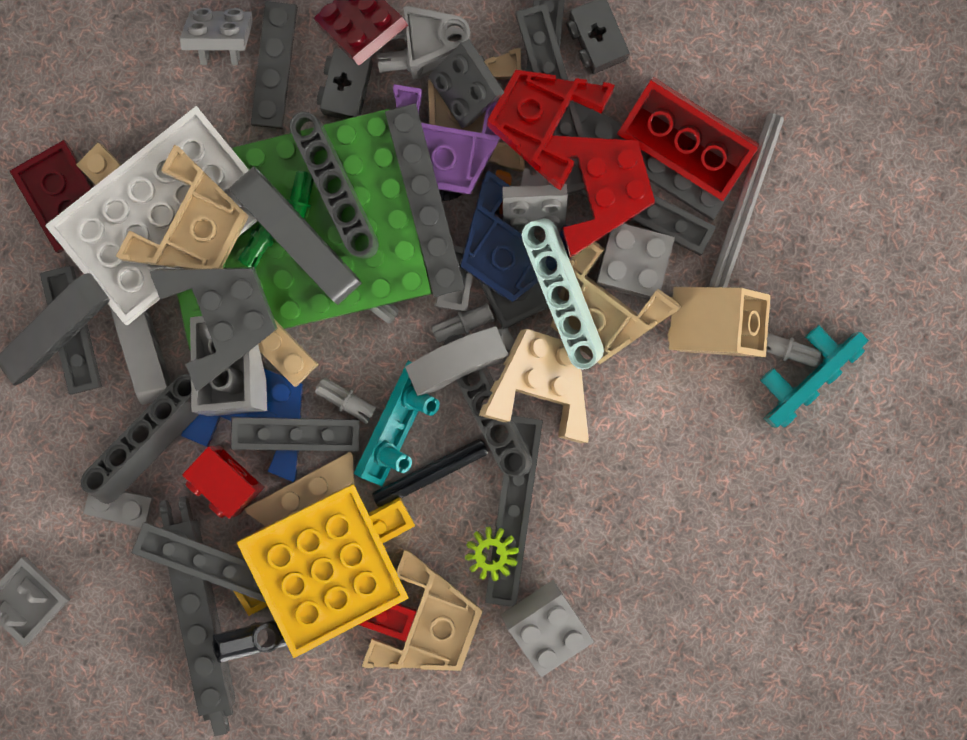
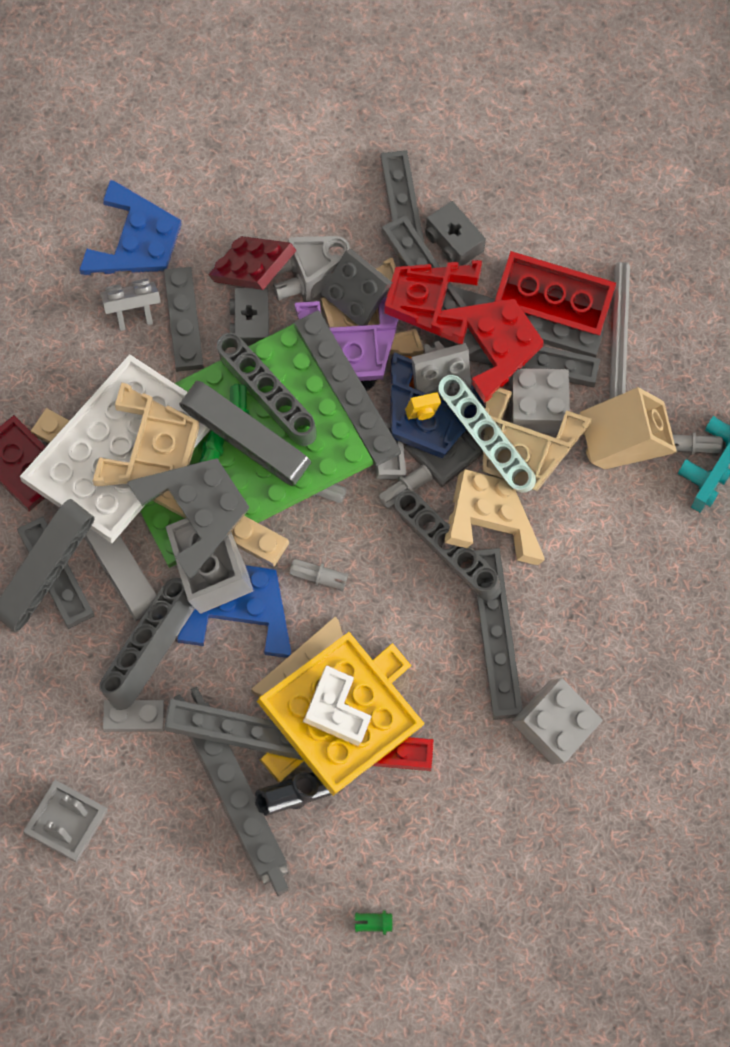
camera: 20 degrees left, 20 degrees down
(222, 482) = (228, 662): red brick -> none
(294, 434) = (282, 608): dark grey plate -> none
(306, 573) = (329, 711): none -> white plate
(391, 431) = (369, 581): teal plate -> none
(430, 472) = (413, 618): black axle -> none
(439, 630) = (459, 751): tan wing -> none
(459, 359) = (410, 506): light grey arch -> none
(481, 556) = (500, 666): lime gear -> none
(501, 247) = (423, 406): none -> yellow plate

